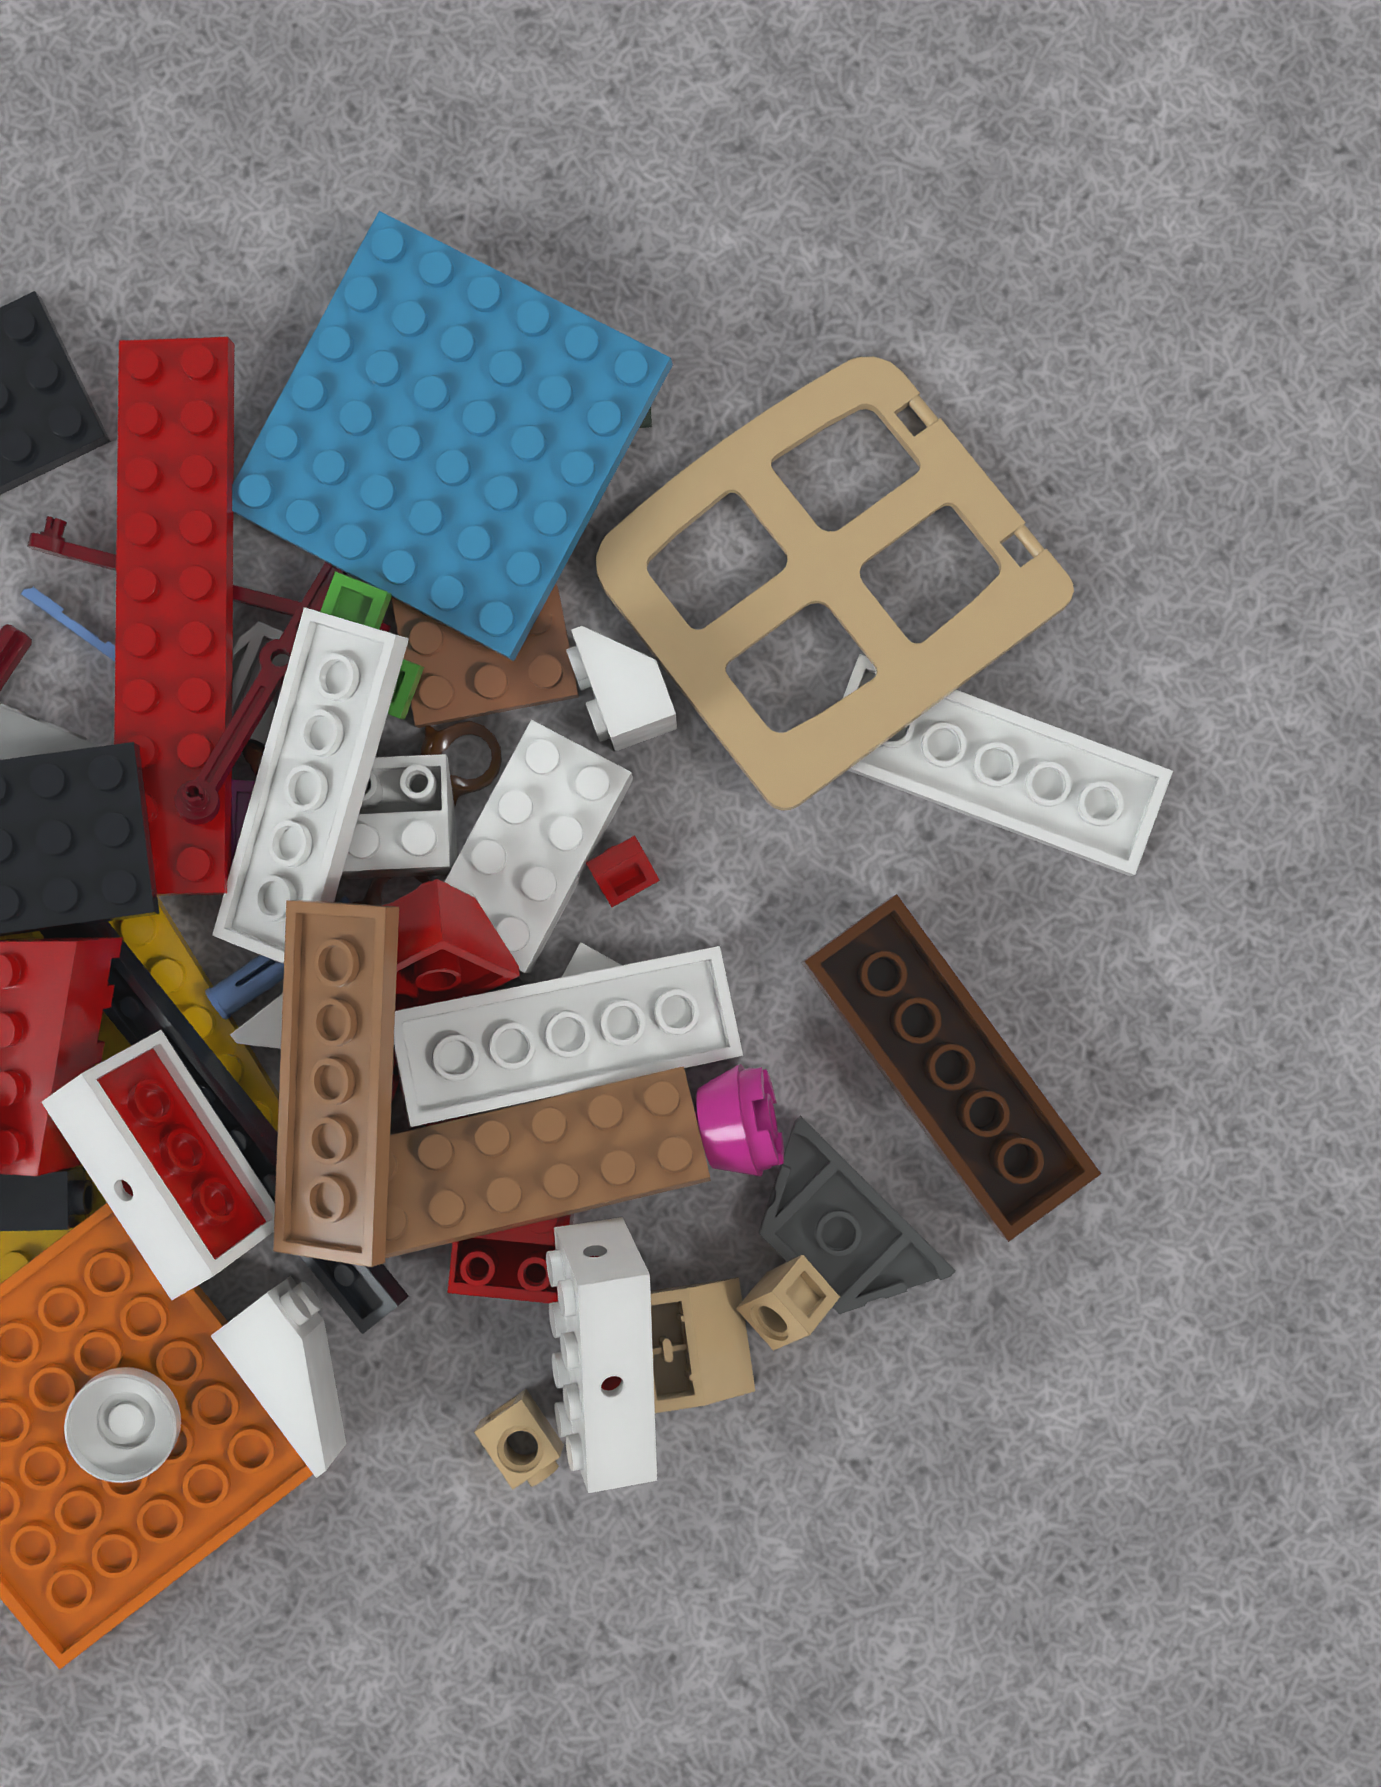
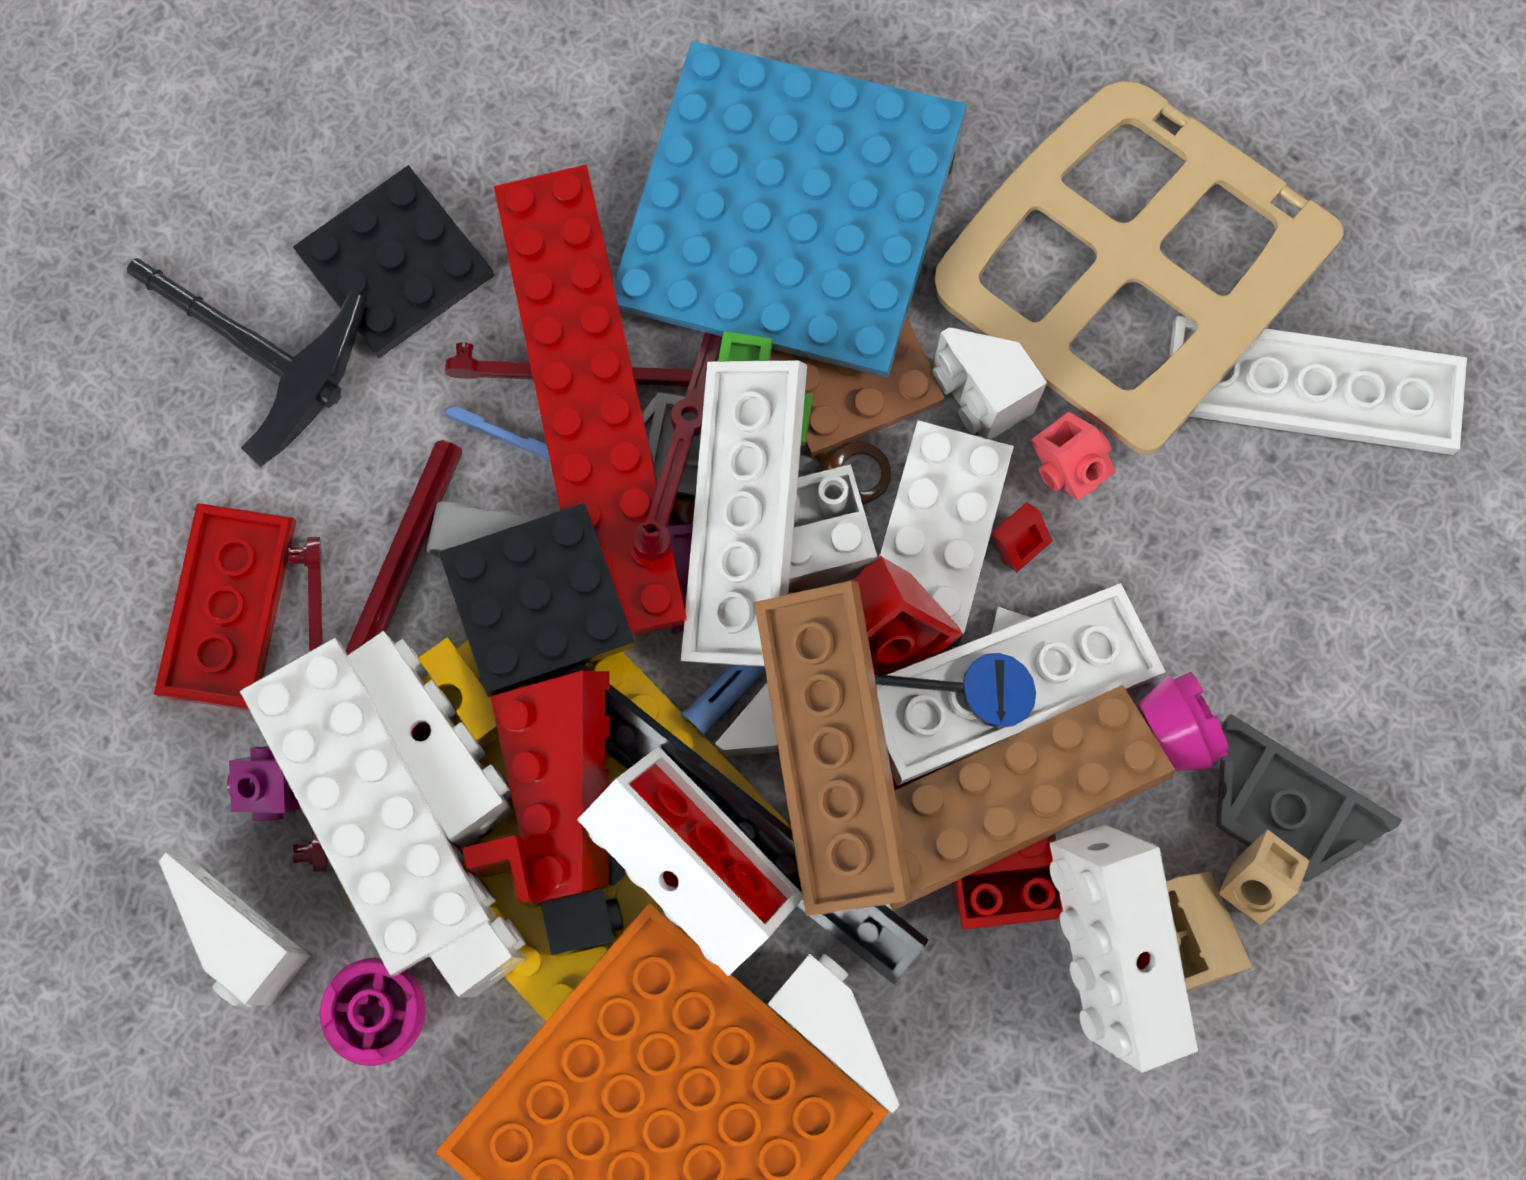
camera: 15 degrees left, 10 degrees down
(122, 1425) = (698, 1112): white piece -> none
(515, 1415) = (1031, 1053): tan brick -> none
(541, 1044) = (993, 687): none -> blue piece
(700, 793) = (1073, 456): none -> coral brick
(951, 1068) = (1351, 643): reddish brown brick -> none

